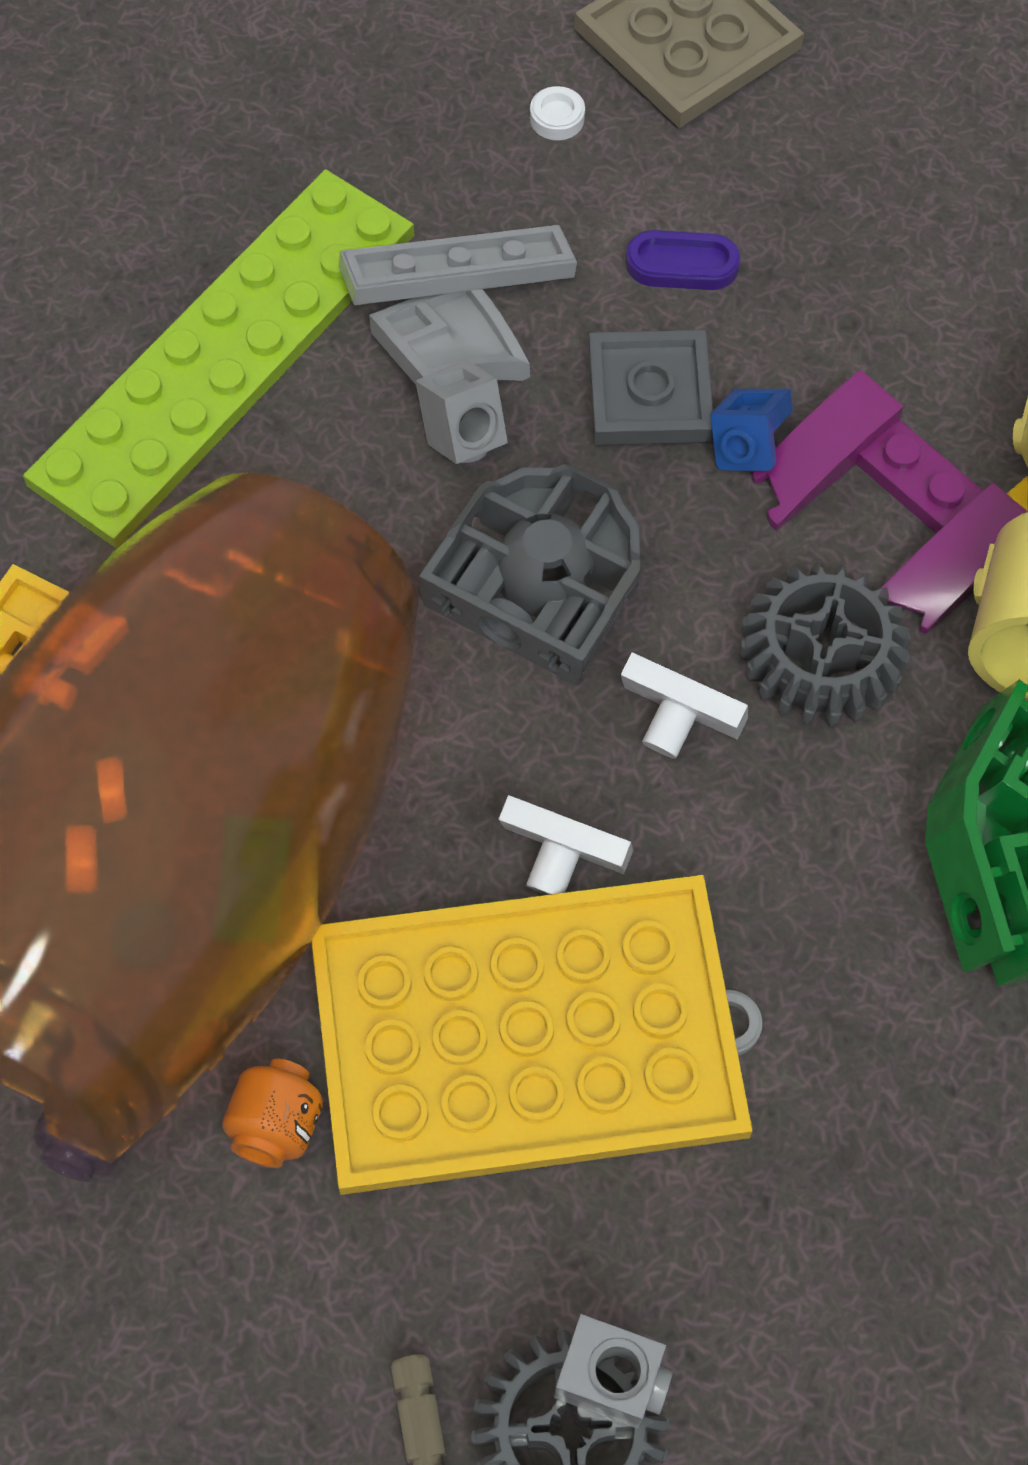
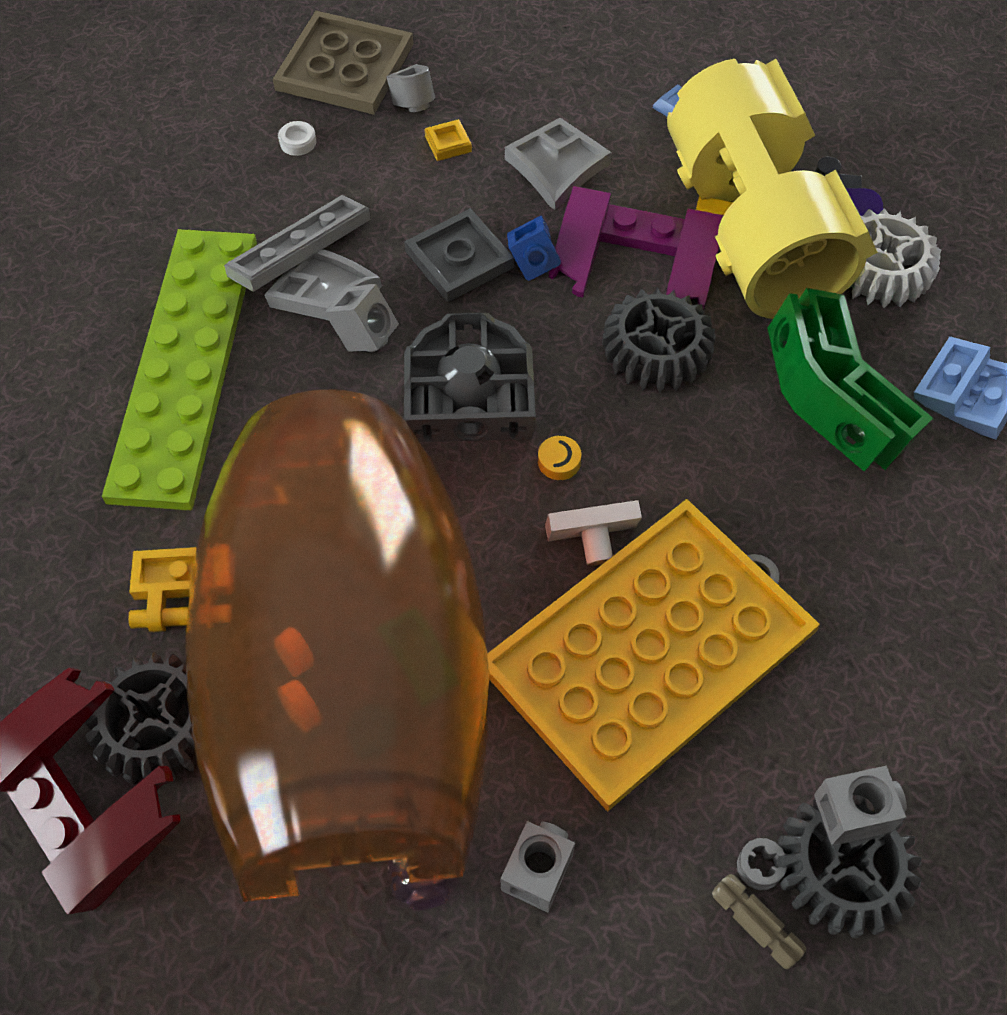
camera: 30 degrees left, 5 degrees down
(184, 1195) = (533, 887): none -> light grey brick
(272, 1113) = (536, 785): orange head -> none
(452, 1375) = (753, 877): none -> light grey bush
(590, 729) = (559, 457): none -> yellow tile
(680, 705) = (604, 412): white tile -> none
(682, 260) = (426, 181): dark purple tile -> none
(748, 115) = (411, 88): none -> light grey plate
(751, 214) = (448, 140): none -> yellow tile
(873, 318) = (557, 160): none -> light grey plate

